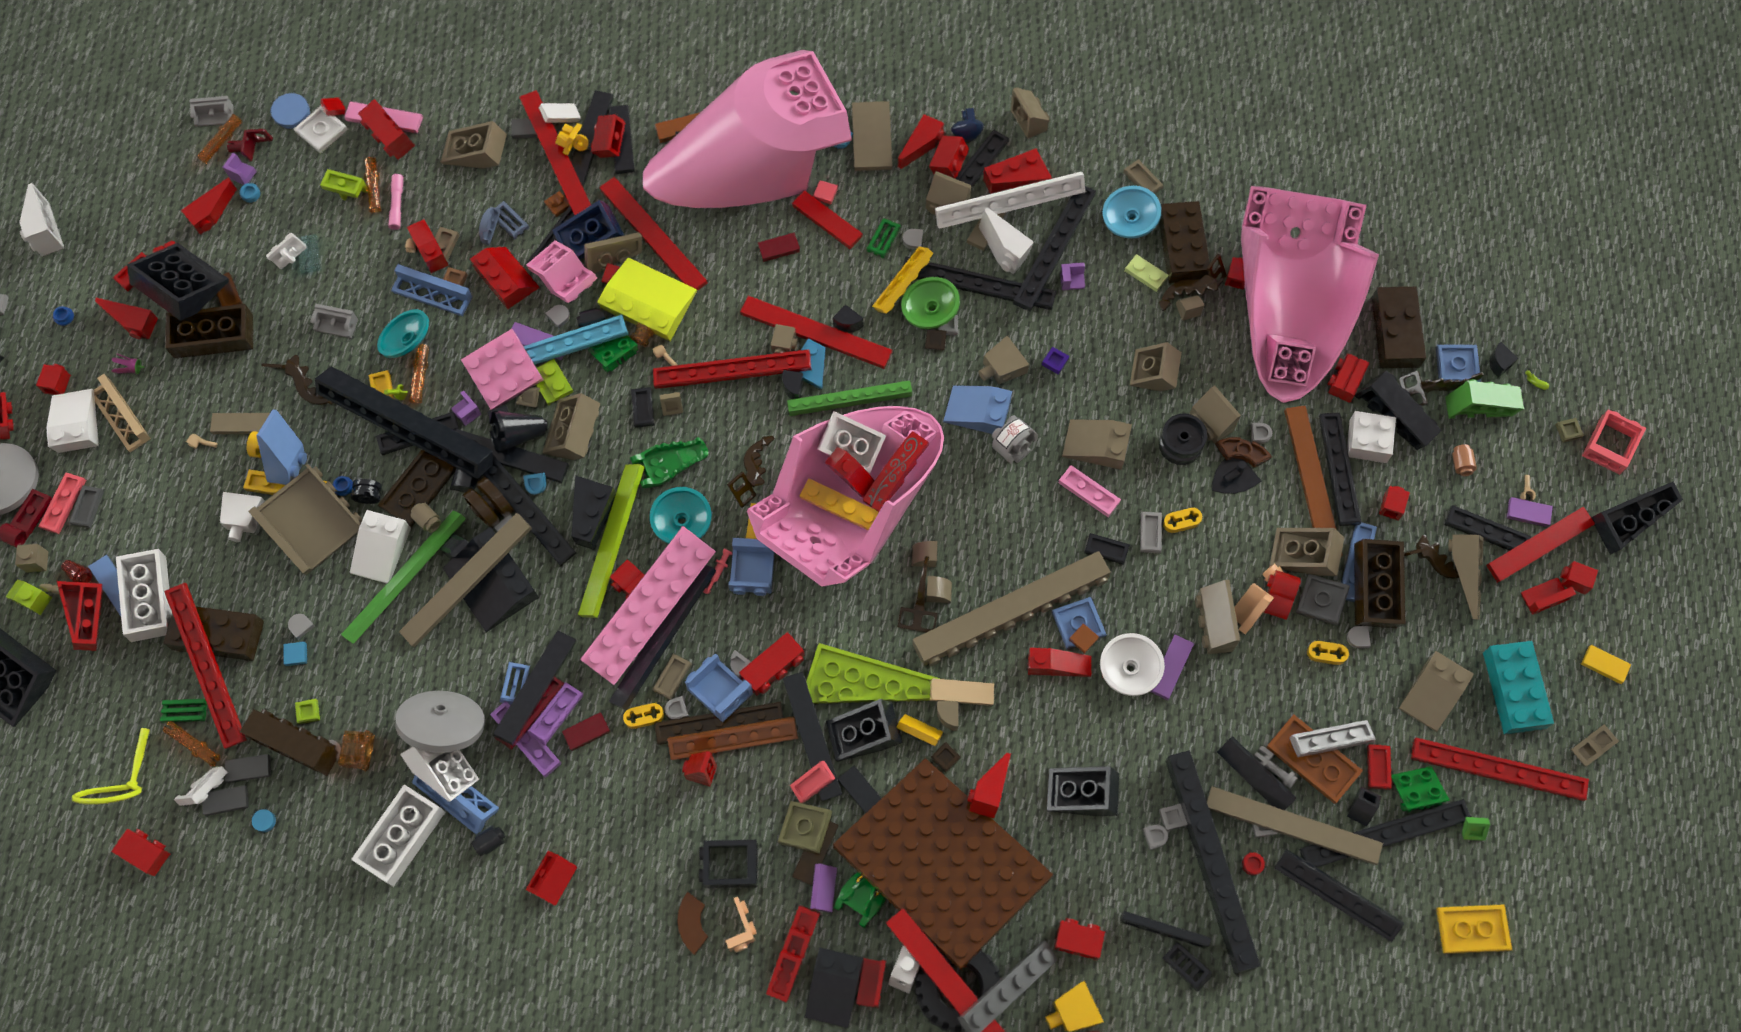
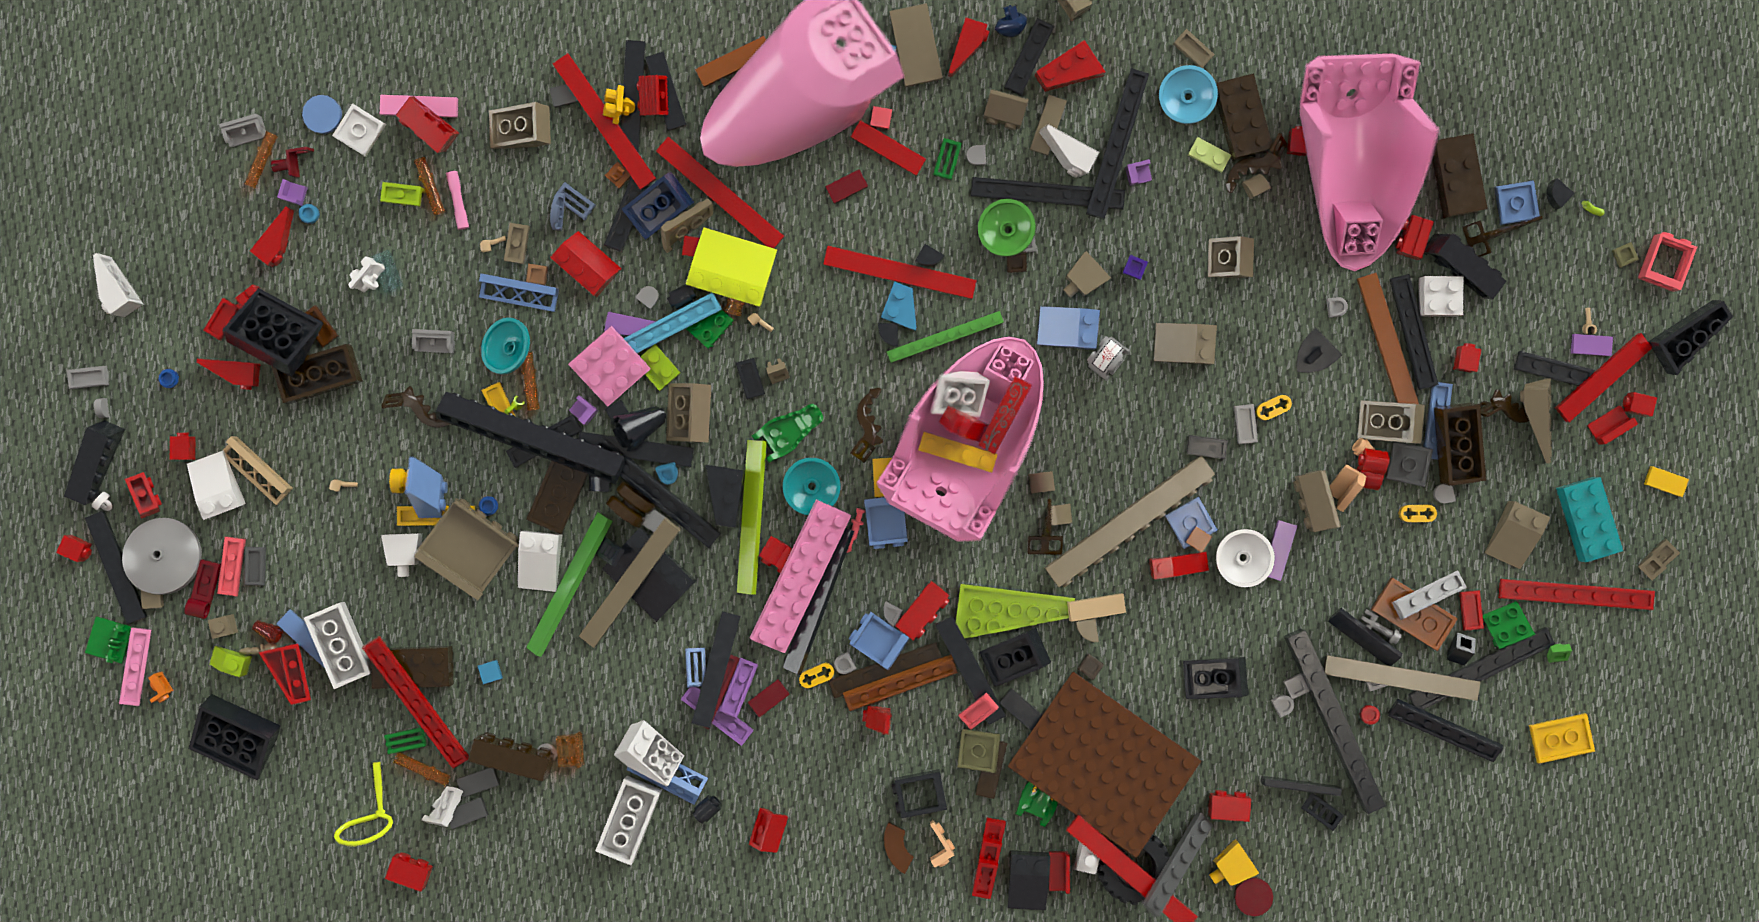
camera: 15 degrees left, 20 degrees up
(133, 365) = (247, 419): flat silver piece -> none
(237, 422) = (375, 459): dark tan tile -> none
(263, 820) = (505, 824): dark azure tile -> none
(300, 625) = (486, 645): light grey tile -> none
(307, 711) = (516, 722): lime tile -> none
(333, 106) = (365, 104): red tile -> none
(366, 491) = (513, 510): black wheel -> none
(425, 517) = (575, 526): dark tan brick -> none
(427, 246) = (503, 247): red slope -> none
(439, 721) = (640, 718): light grey dish -> none
(529, 397) = (641, 388): dark tan tile -> none
(559, 113) = (597, 75): white tile -> none
(561, 271) = (642, 254): bright pink bracket -> none
(672, 677) = (834, 635): dark tan tile -> none
(731, 369) = (828, 327): red tile -> none
(783, 339) = (871, 289): dark tan brick -> none
(823, 888) = (1004, 800): medium lavender tile -> none
(902, 280) = (975, 206): yellow plate -> none
(919, 729) = (1064, 647): yellow tile -> none
(949, 156) = (998, 61): red brick -> none
(989, 788) = (1135, 698): red slope -> none
(1010, 199) = (1068, 104): white plate -> none
(1089, 491) = (1184, 394): bright pink plate -> none
(1182, 439) = (1276, 325): black wheel -> none
(1216, 414) = (1292, 301): dark tan slope -> none
(1242, 449) = (1322, 326): reddish brown tile -> none
(1464, 460) = (1528, 304): nougat brick -> none
(1484, 398) = (1544, 241): bright green wedge -> none

